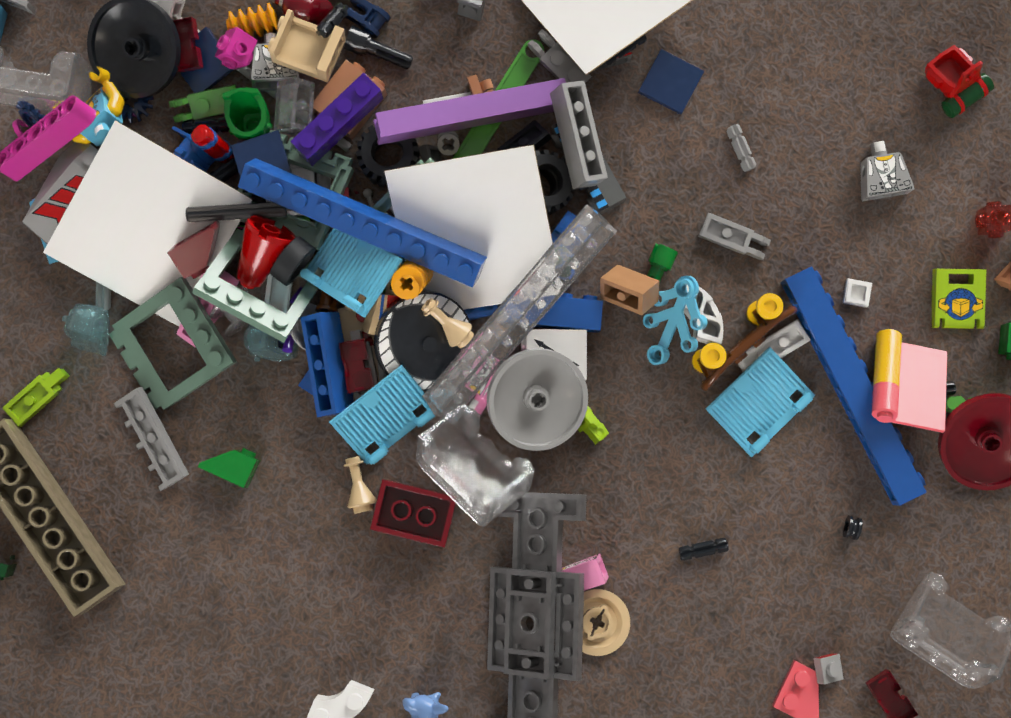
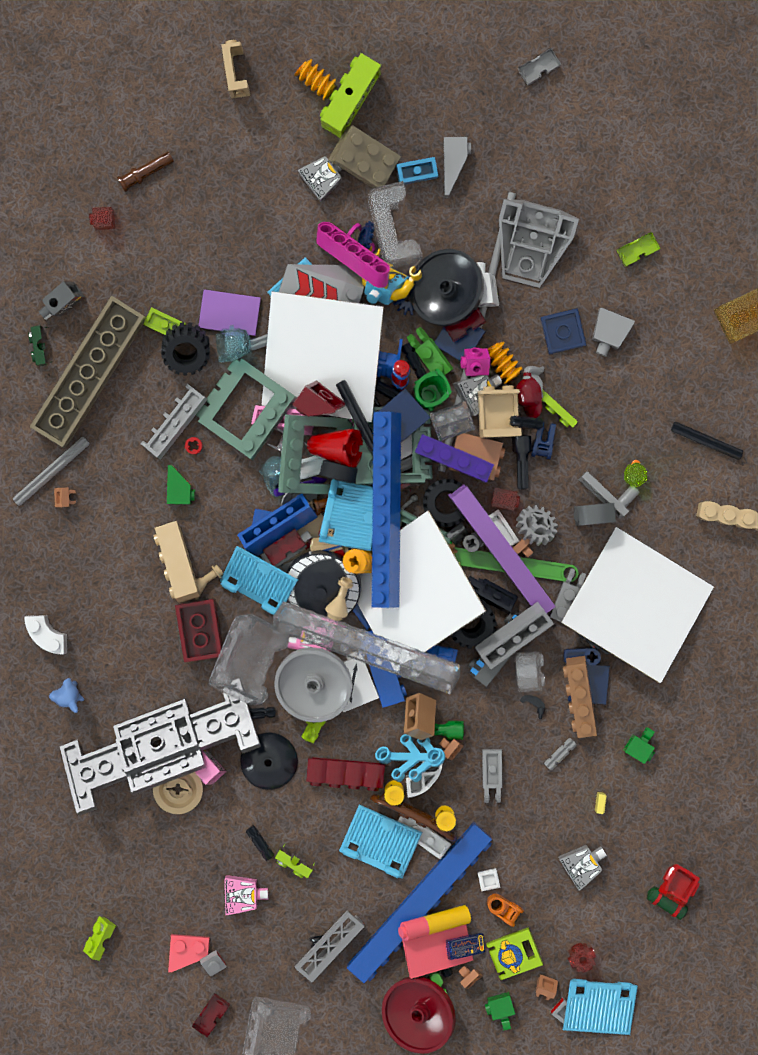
camera: 75 degrees right, 5 degrees up
(43, 324) = (226, 309): none -> medium lavender tile
(89, 386) = (181, 362): none -> black tyre
(145, 615) = (51, 471): none -> light grey axle
(181, 614) = (62, 497): none -> nougat tile
(198, 429) = (194, 451): none -> red bush
(319, 504) = (177, 562): none -> tan brick
(413, 86) = (505, 499): none -> clear red brick
(460, 61) = (536, 525): none -> light grey gear
(546, 480) = (258, 713): none -> black axle
(623, 482) = (283, 759): none -> black dish
(627, 139) = (528, 670): none -> clear brick
(636, 75) = (576, 652): none -> dark blue piece
(660, 409) = (345, 772): none -> dark red brick
(669, 150) = (536, 702): none -> black piece
(682, 269) = (451, 748): none -> nougat tile
(684, 91) = (581, 697): none -> medium nougat brick
(737, 525) = (285, 860): none -> lime piece
(758, 596) = (242, 894): none -> torso
(771, 51) = (639, 747): none -> green brick
(818, 123) = (600, 803): none -> light yellow tile
(868, 515) = (332, 948): none -> light grey fence
(902, 286) = (506, 911): none -> orange piece
(927, 352) = (465, 946): none -> clear blue tile
(968, 362) = (470, 978): none -> nougat tile

